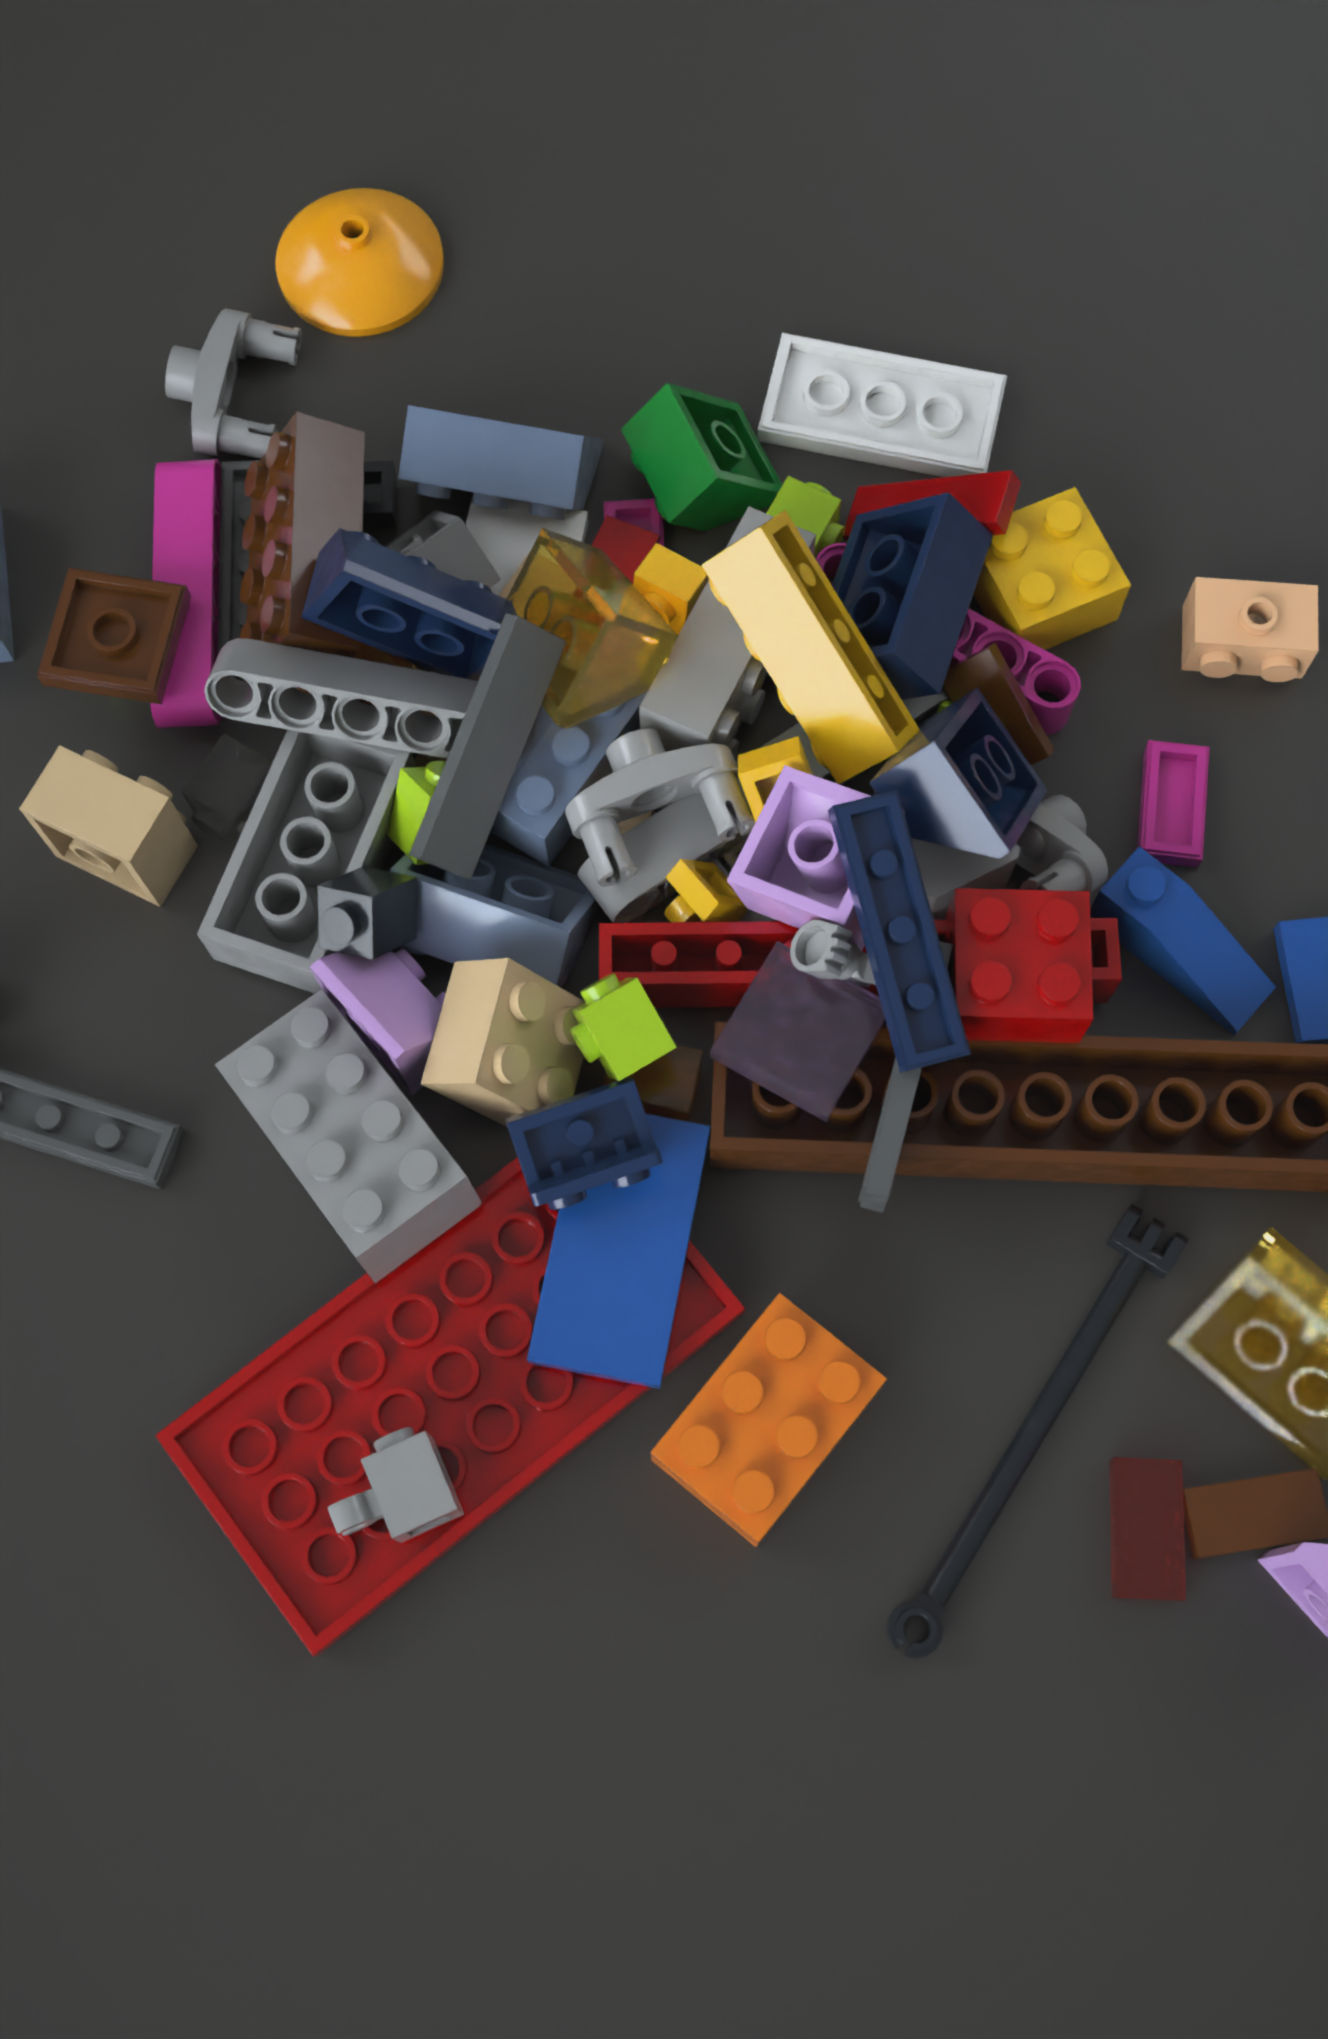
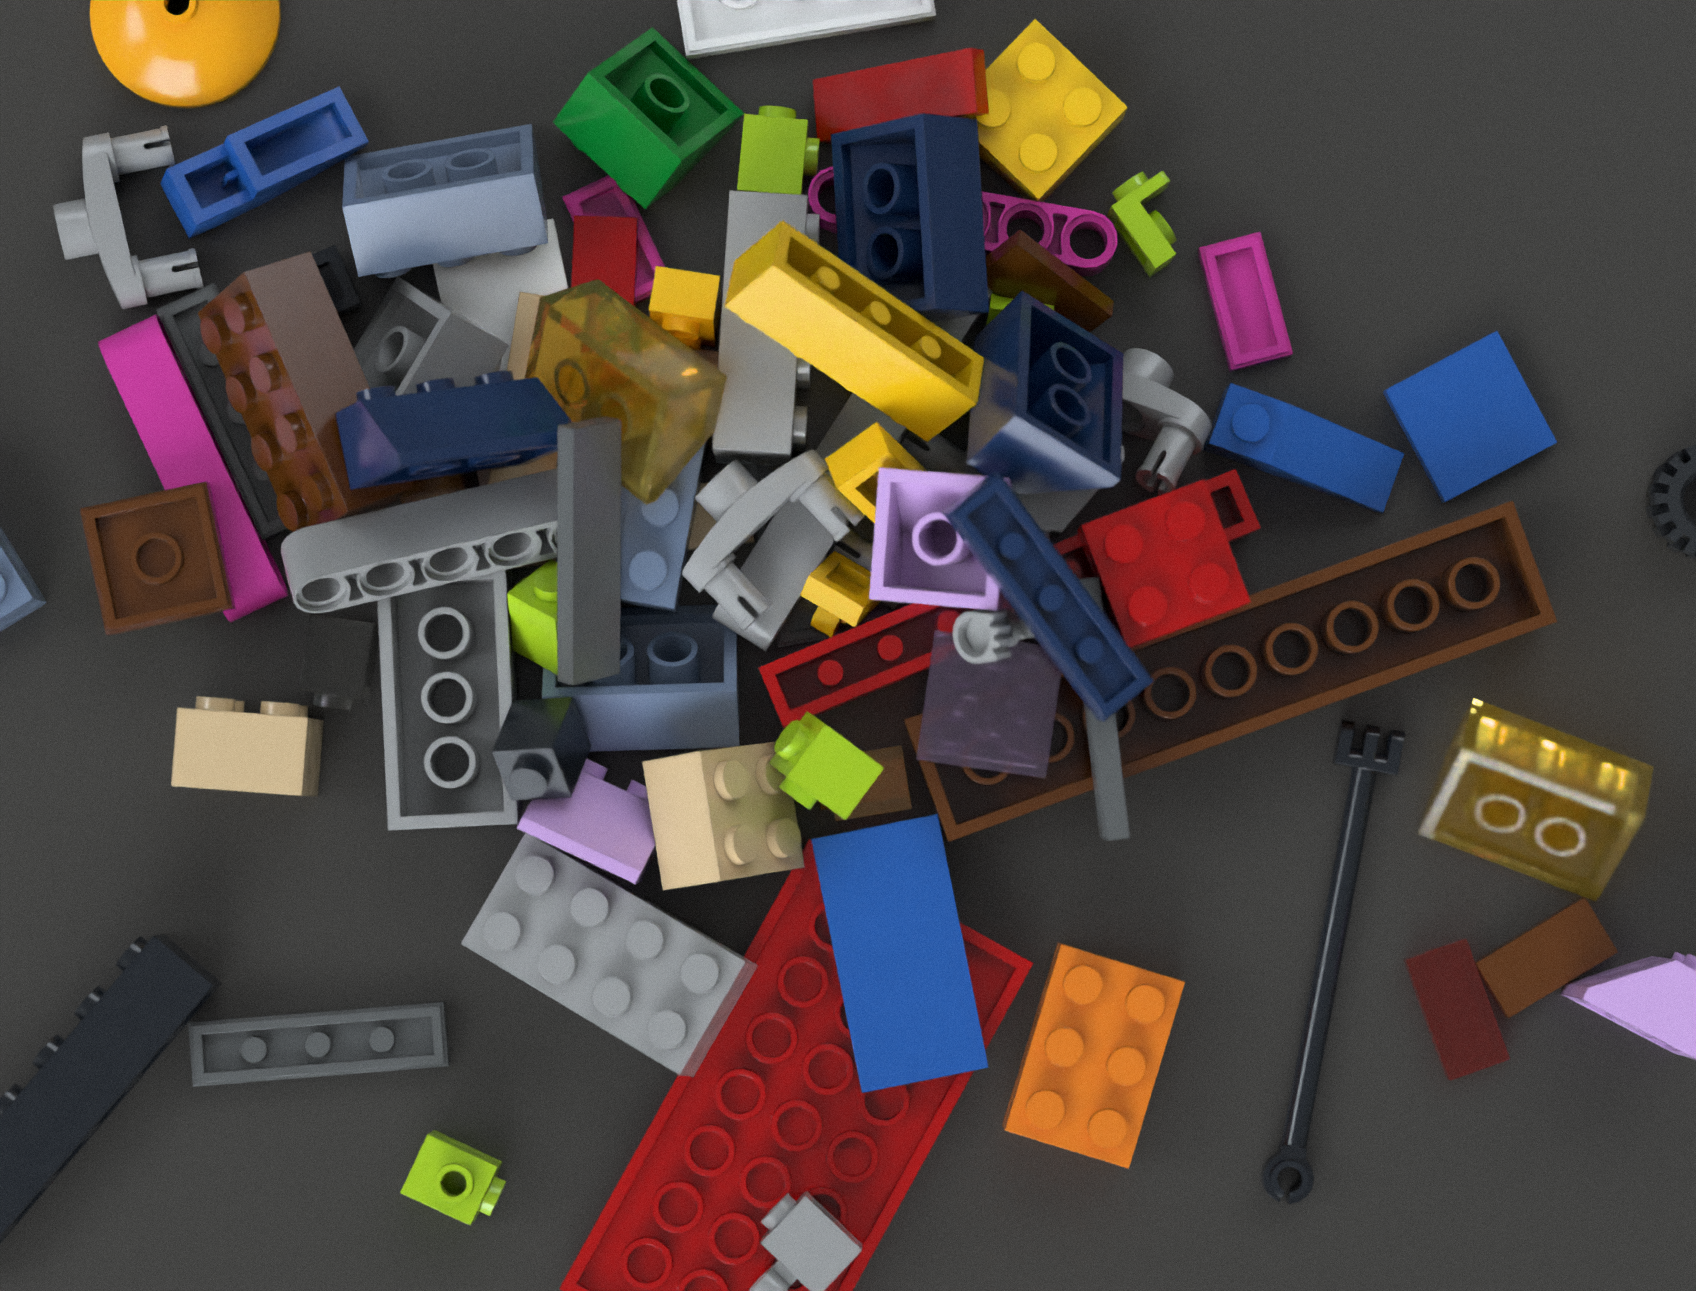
camera: 25 degrees left, 15 degrees up
(108, 1288) = (454, 1178): none -> lime brick
(364, 380) = (262, 162): none -> blue slope
(584, 1144) = (835, 886): dark blue bracket -> none
(1103, 698) = (1144, 233): none -> lime bracket
(1249, 628) = (1257, 92): light nougat brick -> none

